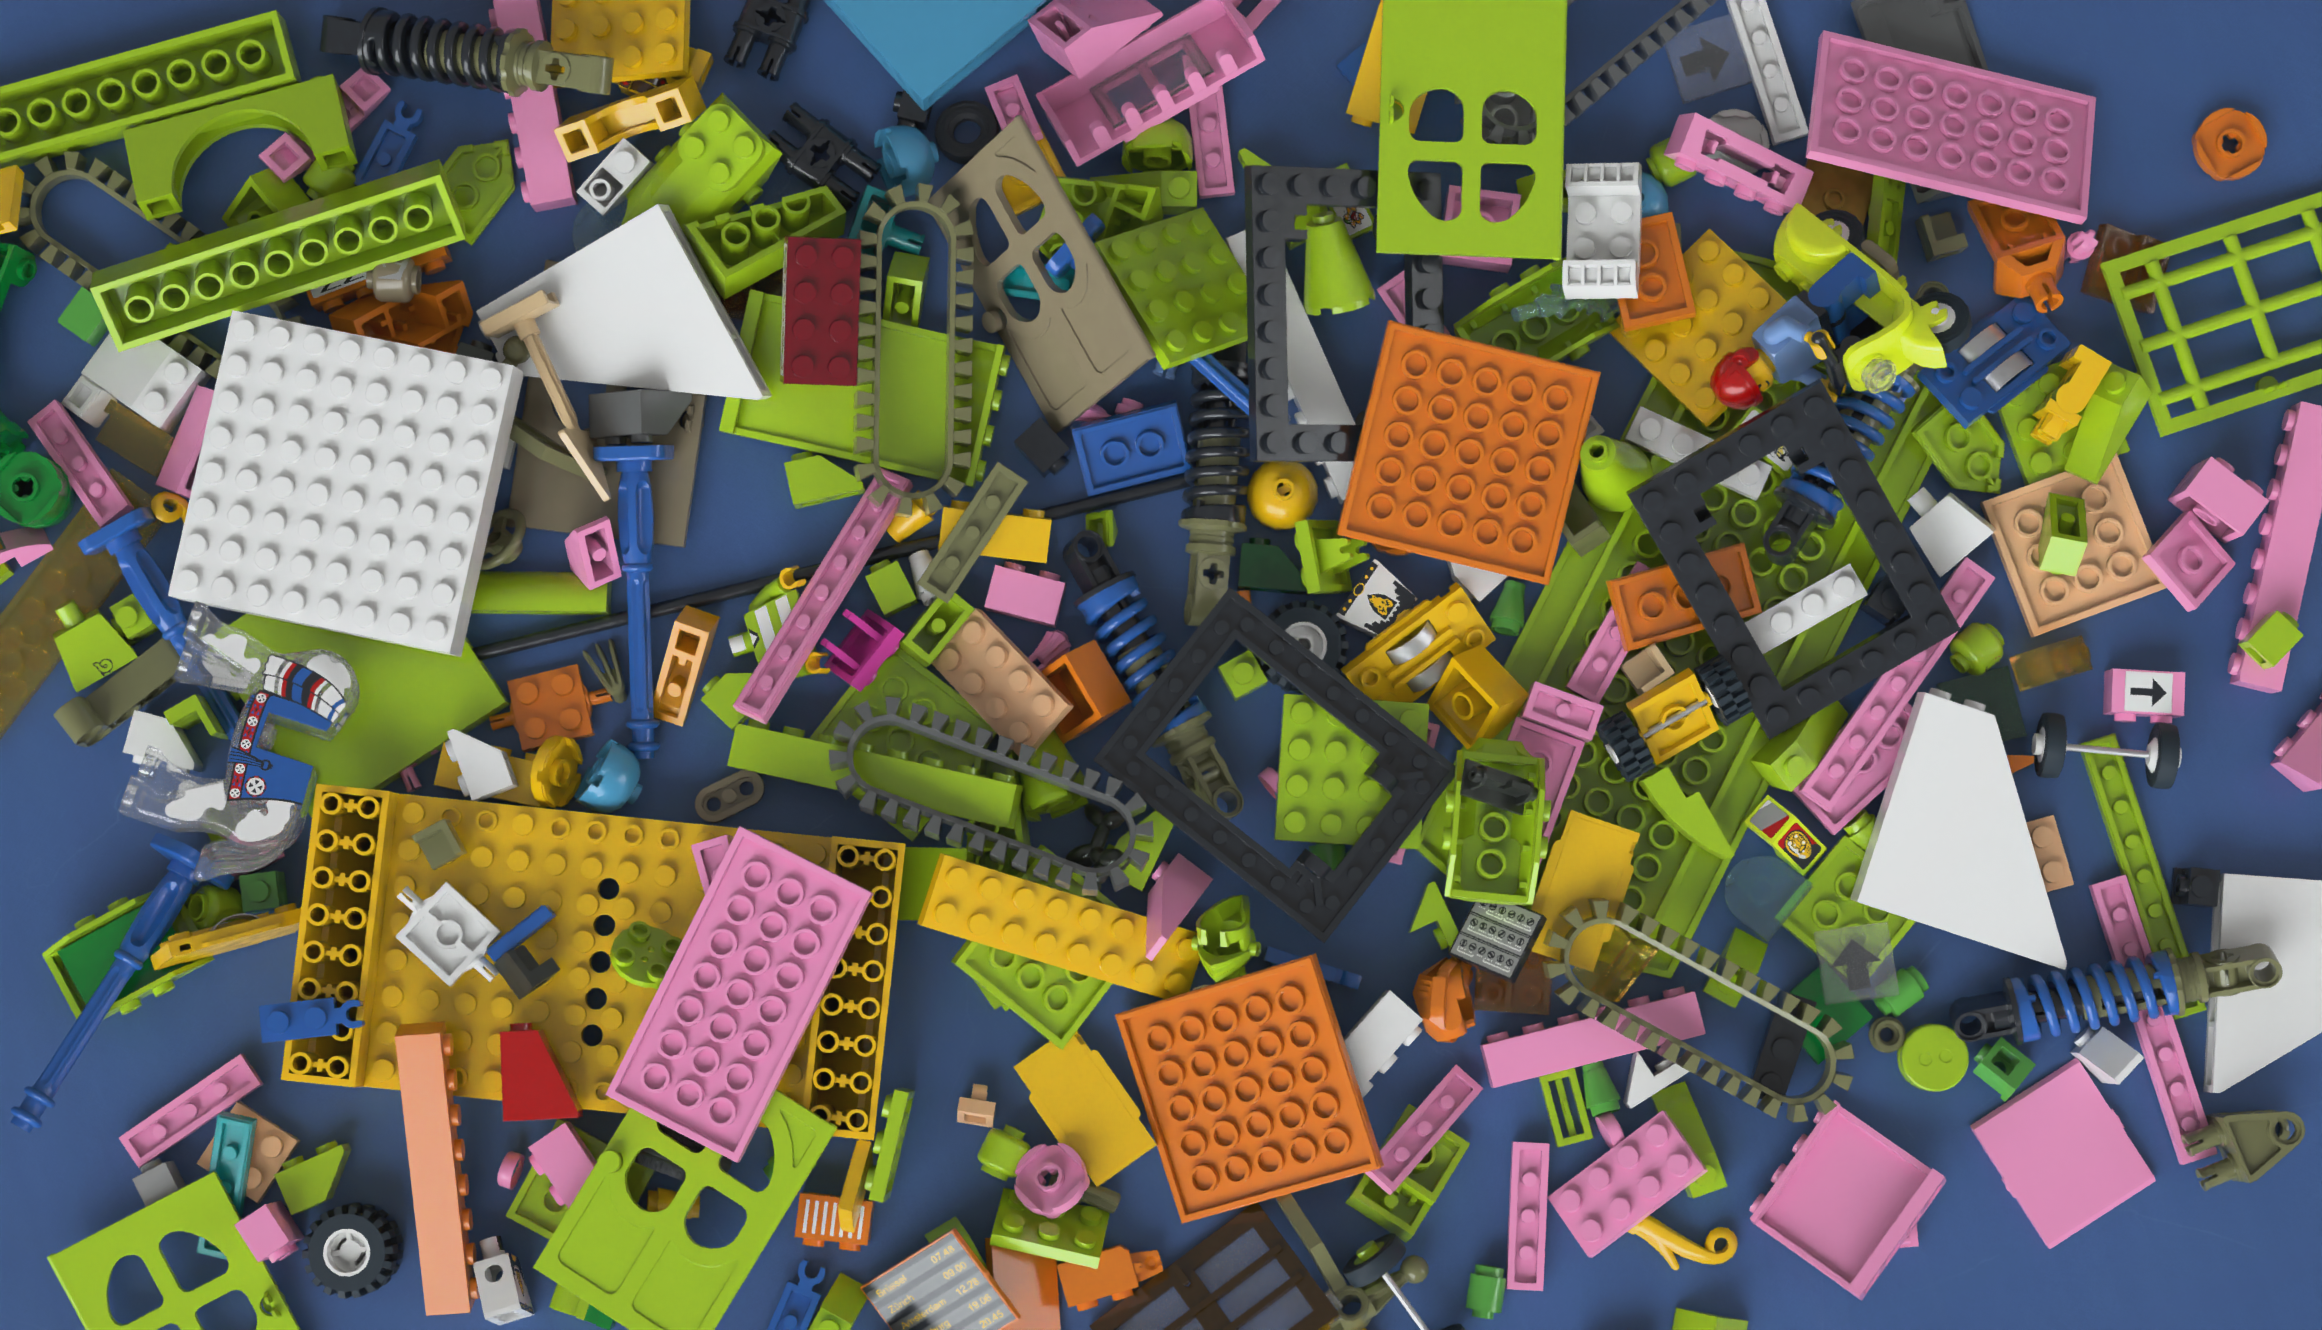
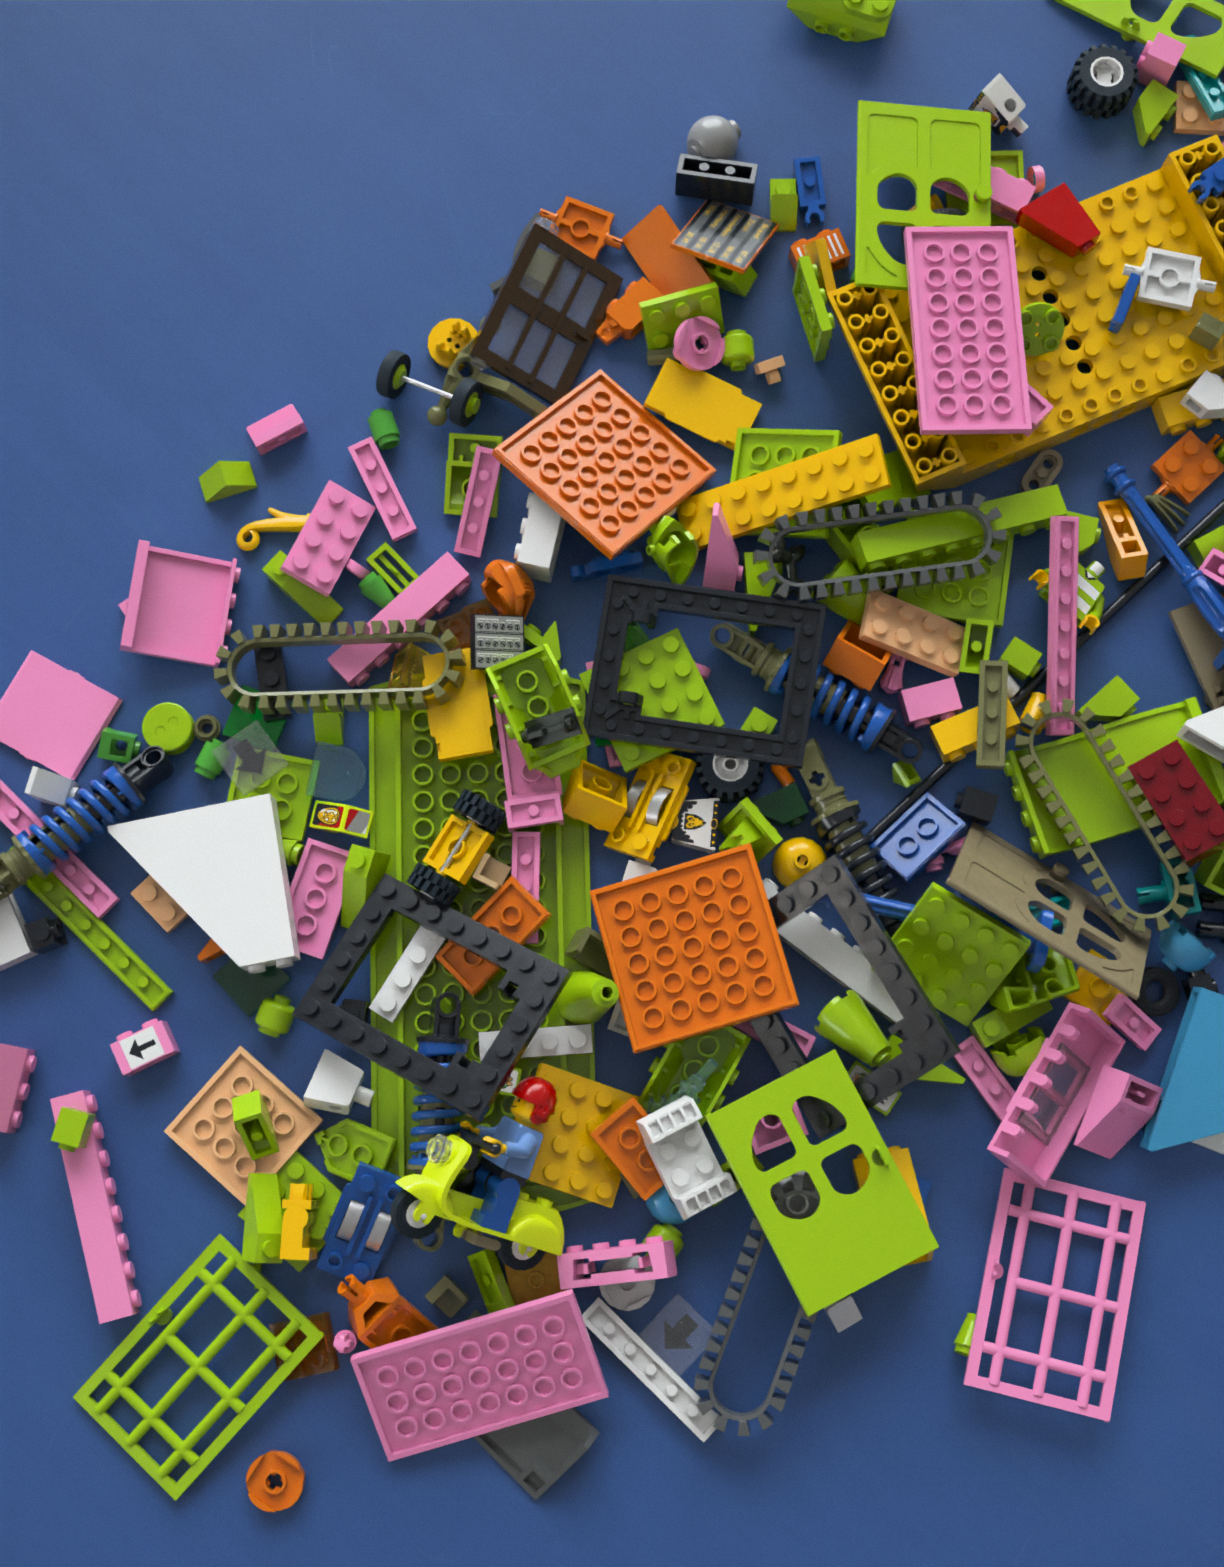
camera: 155 degrees right, 5 degrees down
(436, 1167) = (1089, 146): brick -> none
(523, 971) = (1108, 282): pearl dark grey panel -> none
(555, 771) = (1161, 424): yellow tile -> none
(610, 780) = (1123, 440): dark azure cylinder -> none
(863, 649) = (1014, 606): dark pink plate -> none
(906, 288) = (1130, 860): lime slope -> none
(1508, 612) = (605, 867): bright green cone -> none
(1644, 1084) = (349, 609): white slope -> none
(1686, 814) = (415, 792): lime slope -> none
(1890, 696) = (317, 949): bright pink plate -> none
(2051, 663) = (219, 1033): clear yellow slope -> none
(2161, 756) = (111, 1008): black axle -> none
(2188, 561) = (158, 1156): bright pink plate -> none
(2219, 498) = (157, 1210): bright pink brick -> none

